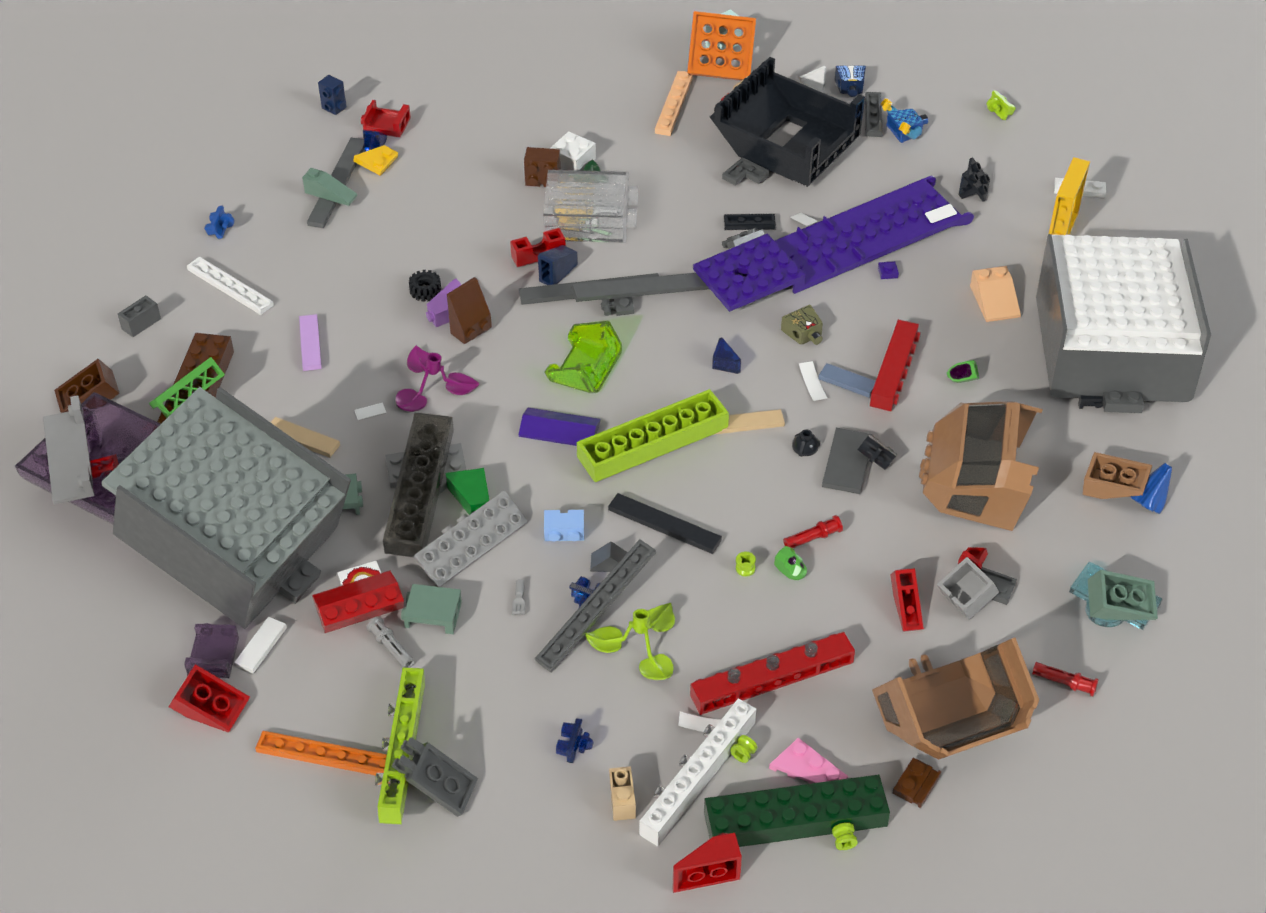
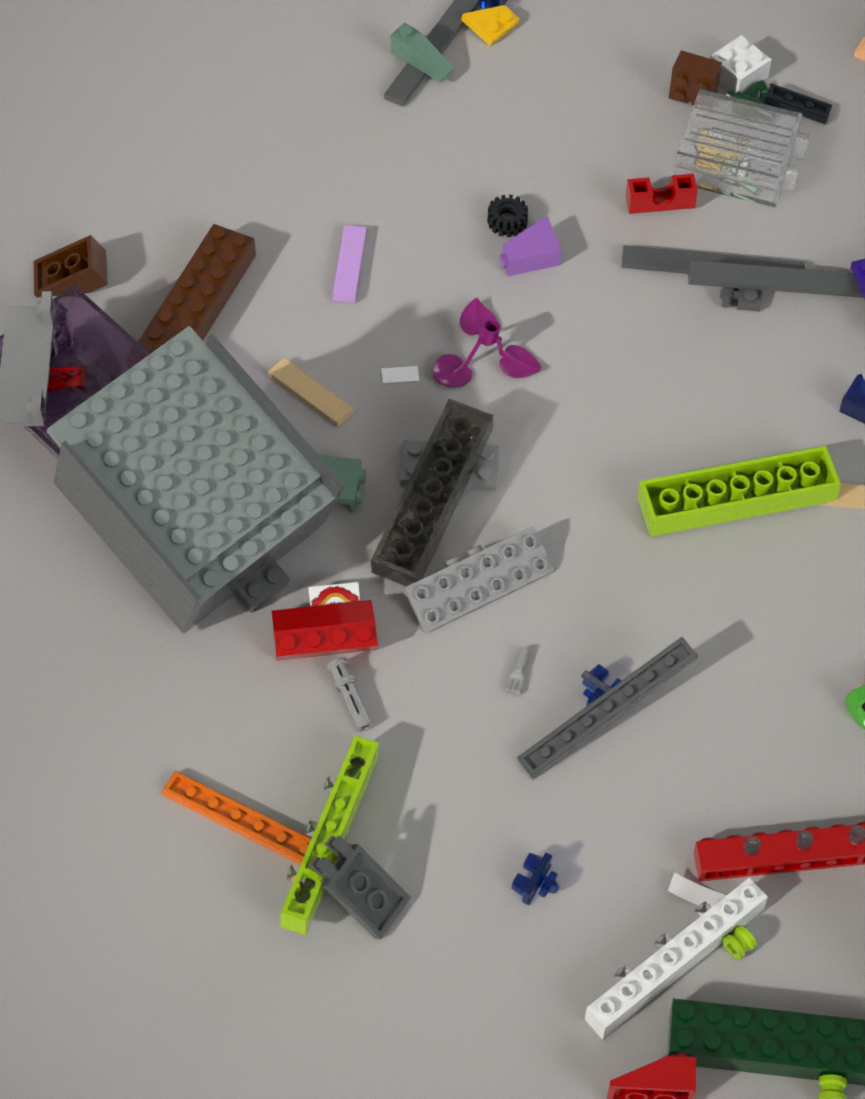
camera: 15 degrees right, 10 degrees up
(139, 316) = (153, 183): dark grey panel -> none
(181, 384) = (181, 292): bright green fence -> none
(209, 700) = (122, 717): red slope -> none
(213, 649) = (140, 653): clear purple panel -> none
(219, 222) = (278, 73): blue hips -> none
(230, 285) = (271, 163): white tile -> none
(260, 645) = (198, 658): white tile -> none
(432, 606) = (410, 659): sand green panel -> none
(468, 311) = (550, 268): reddish brown slope -> none
(468, 488) = (494, 511): green slope -> none
(556, 264) = (678, 222): dark blue slope -> none
(557, 426) = (624, 449): dark purple slope -> none
(564, 525) = (596, 589): light blue brick -> none
(590, 359) = (687, 364): clear neon green windscreen -> none
(606, 558) = (639, 645): dark grey slope -> none
(622, 793) = (576, 963): tan slope -> none
(635, 171) = (797, 102): none -> black tile
(659, 619) = (682, 742): lime plant -> none
(665, 523) = (723, 613): black tile -> none
(745, 564) = (805, 700): lime wheel -> none
(805, 763) = (813, 983): bright pink wing -> none

